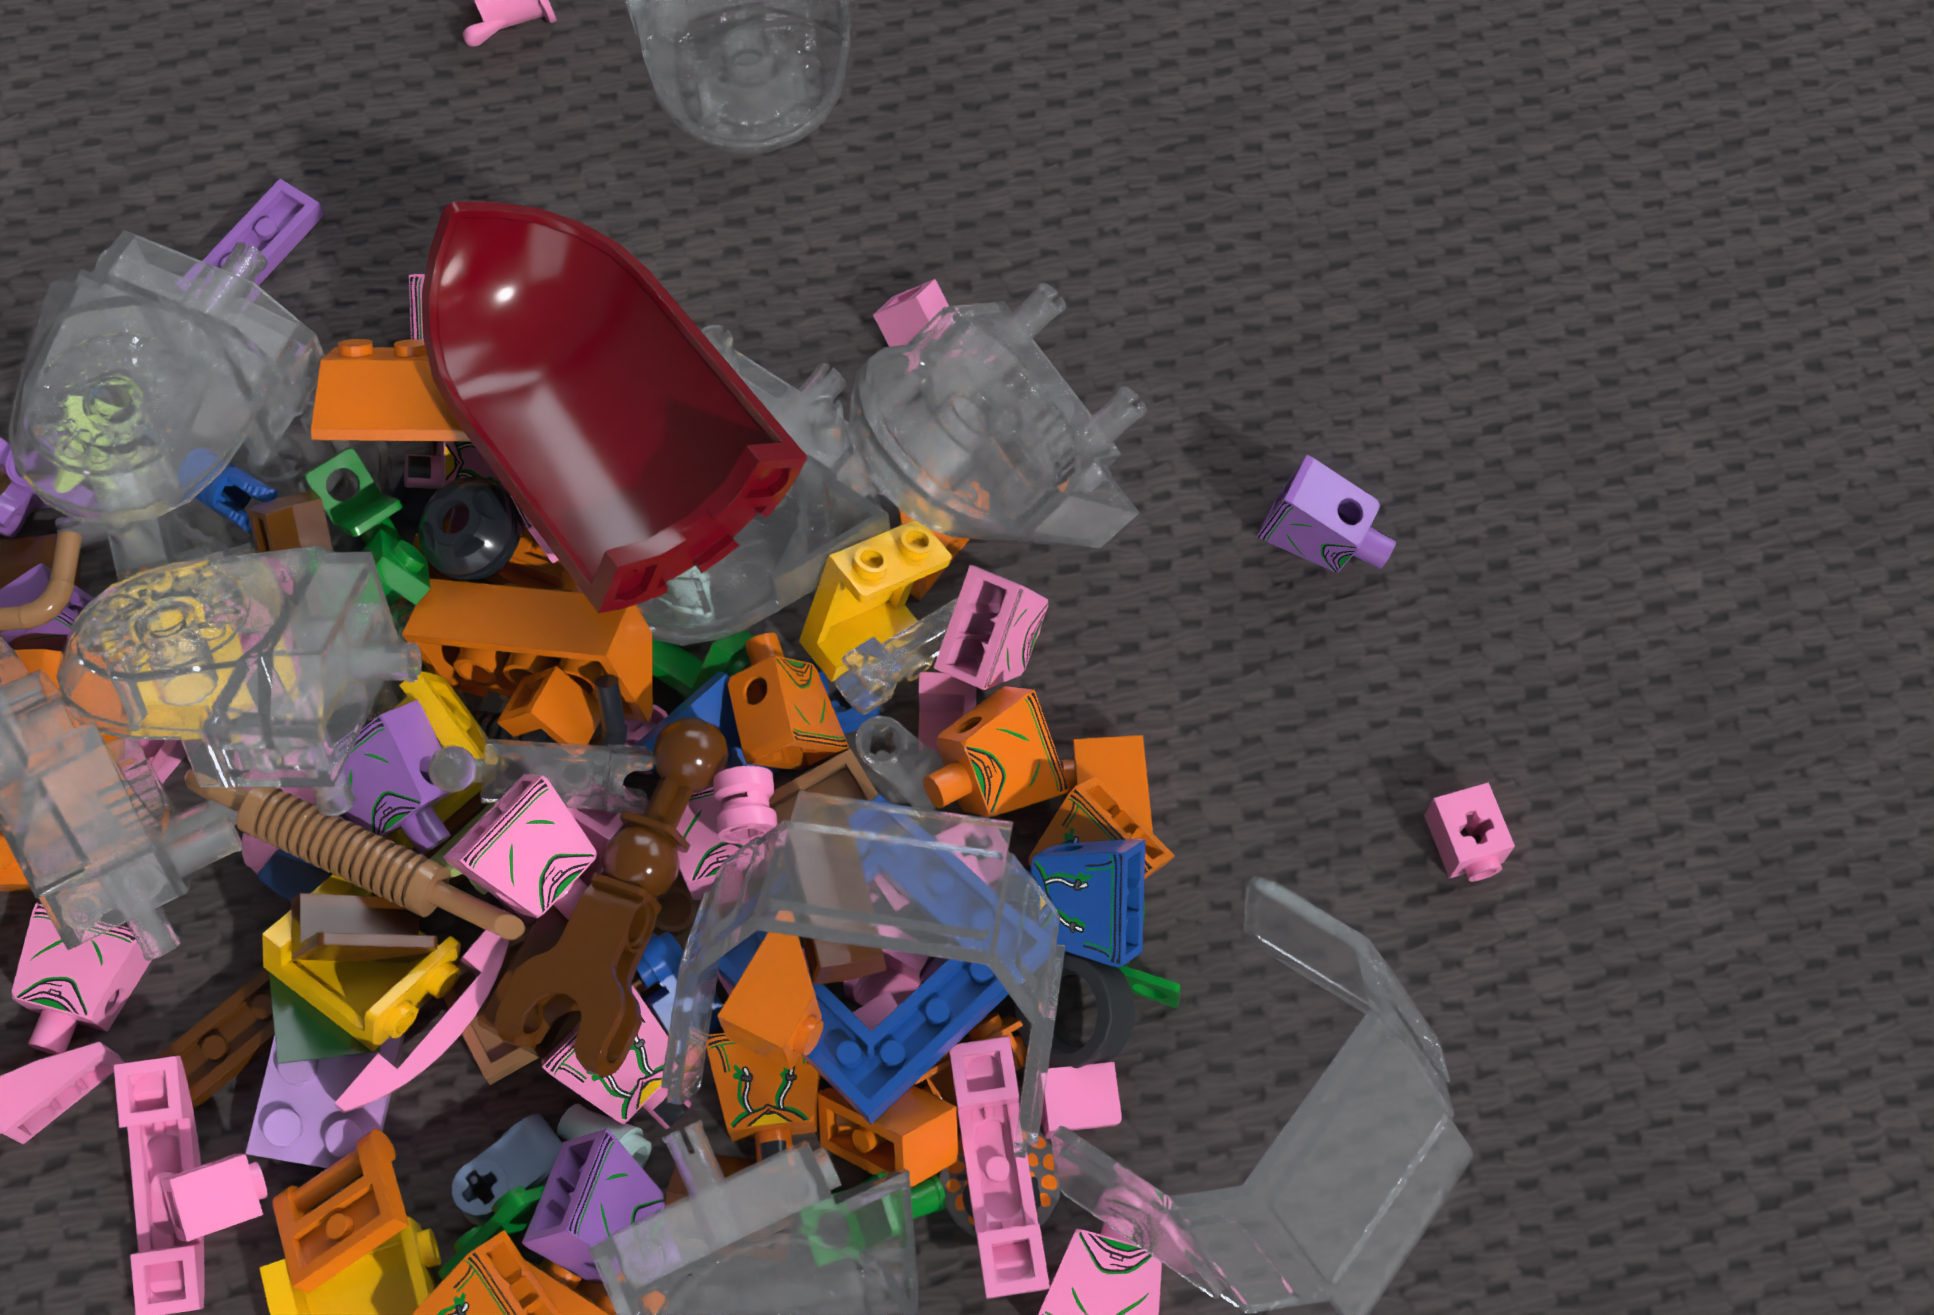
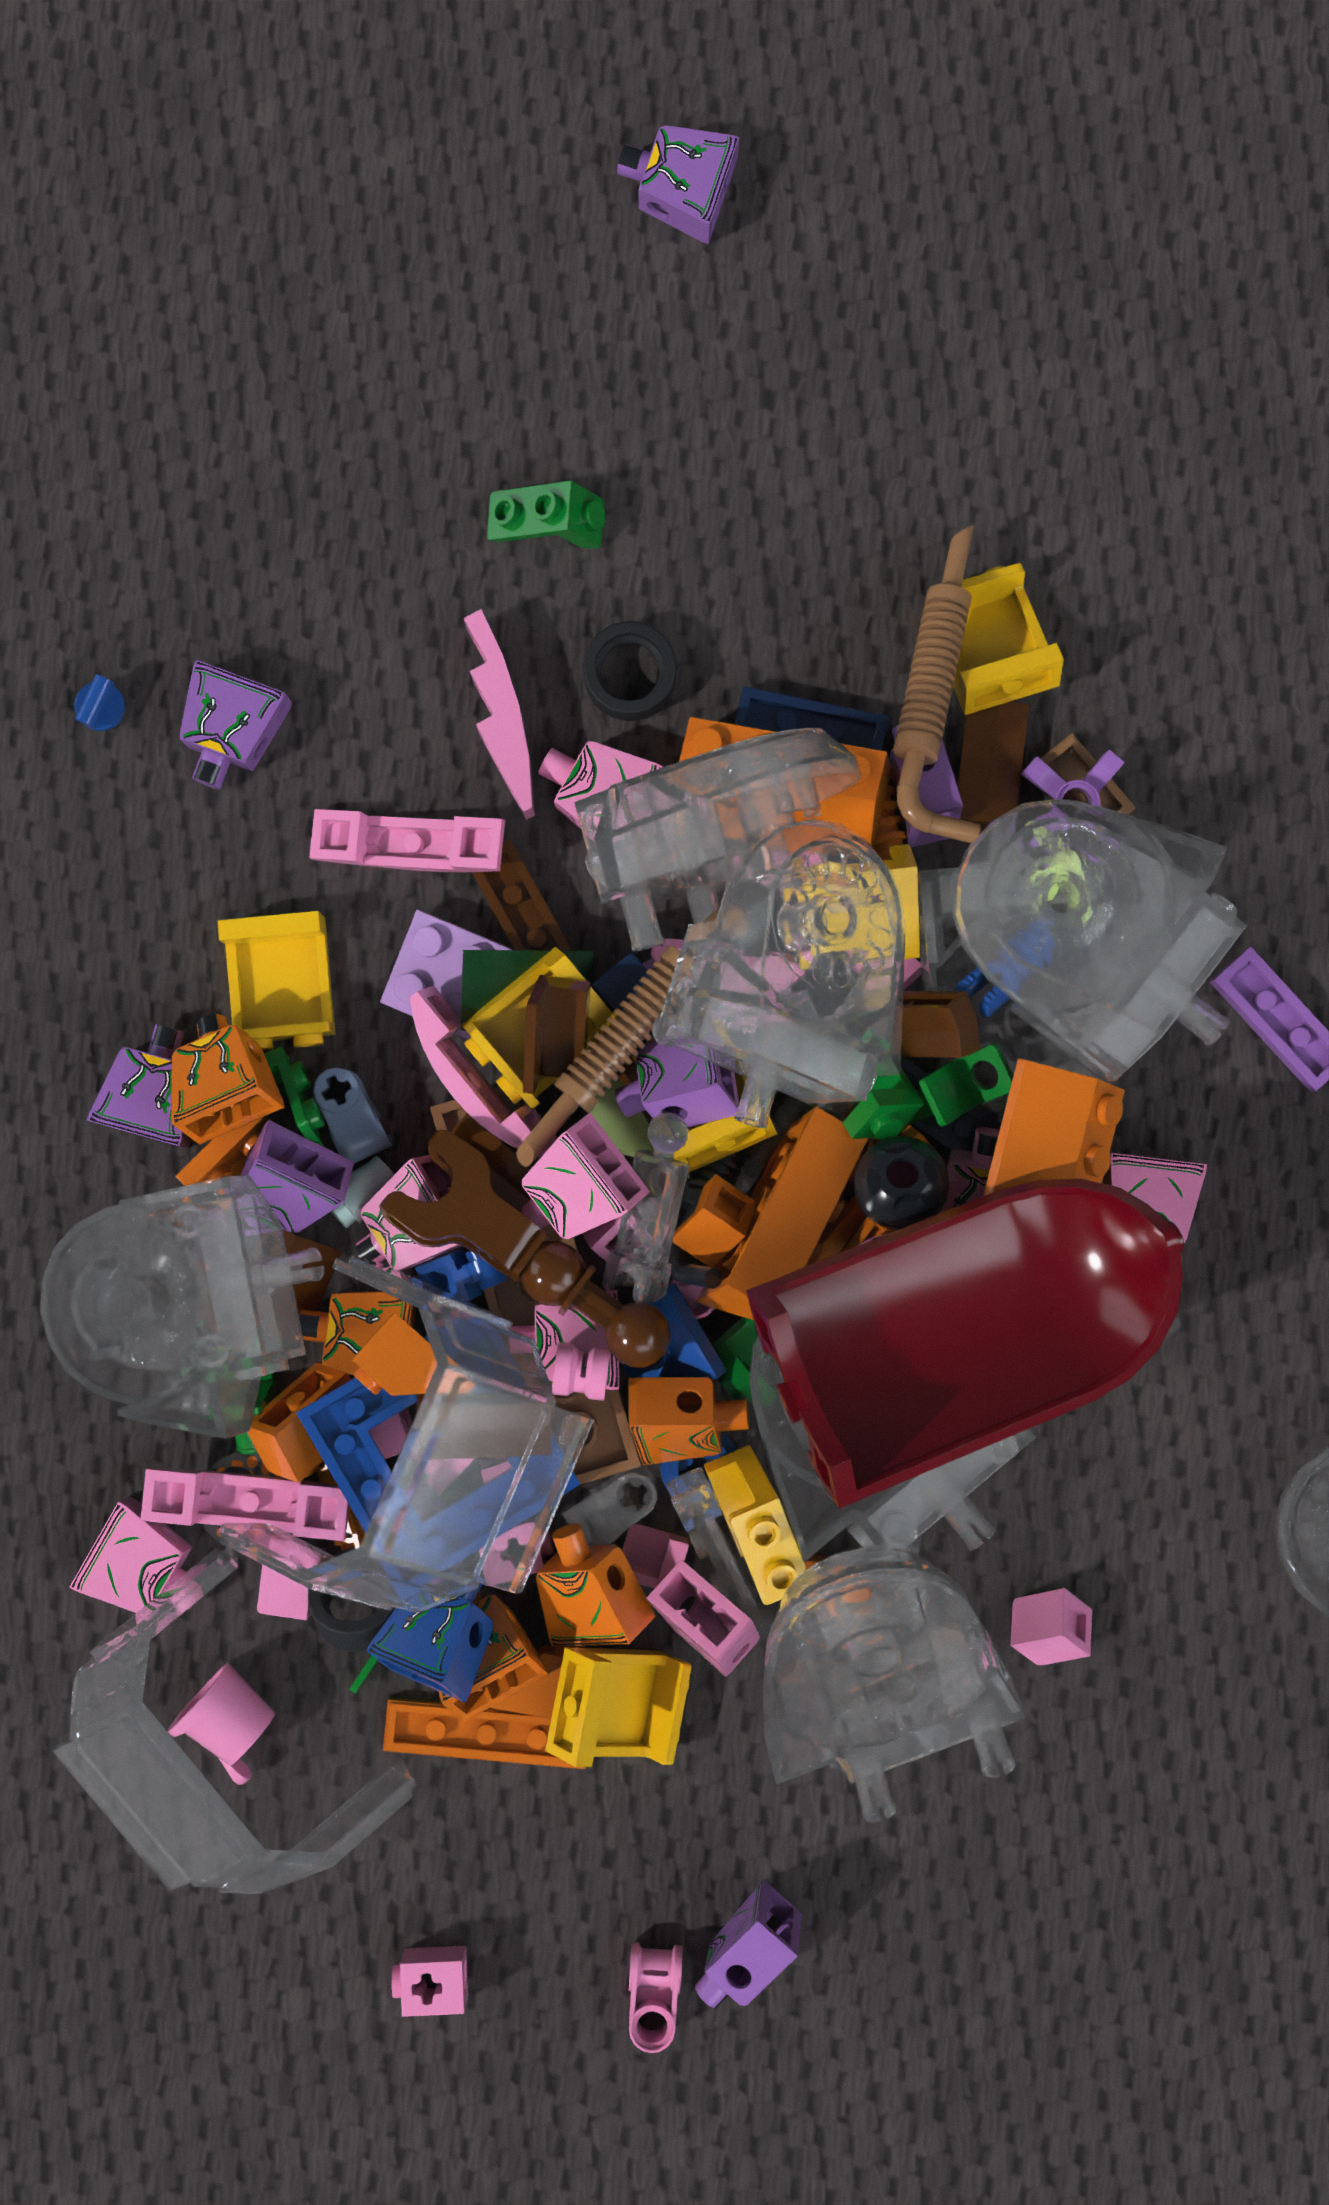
camera: 100 degrees right, 20 degrees up
(214, 1196) = (386, 881): bright pink brick -> none
(349, 1223) = (332, 981): orange plate -> none
(1111, 701) = (618, 1705): none -> yellow panel
(1187, 828) = (491, 1735): none -> orange tile
(1244, 1126) = (225, 1720): none -> bright pink hat
(1393, 606) = (654, 1987): none -> bright pink piece

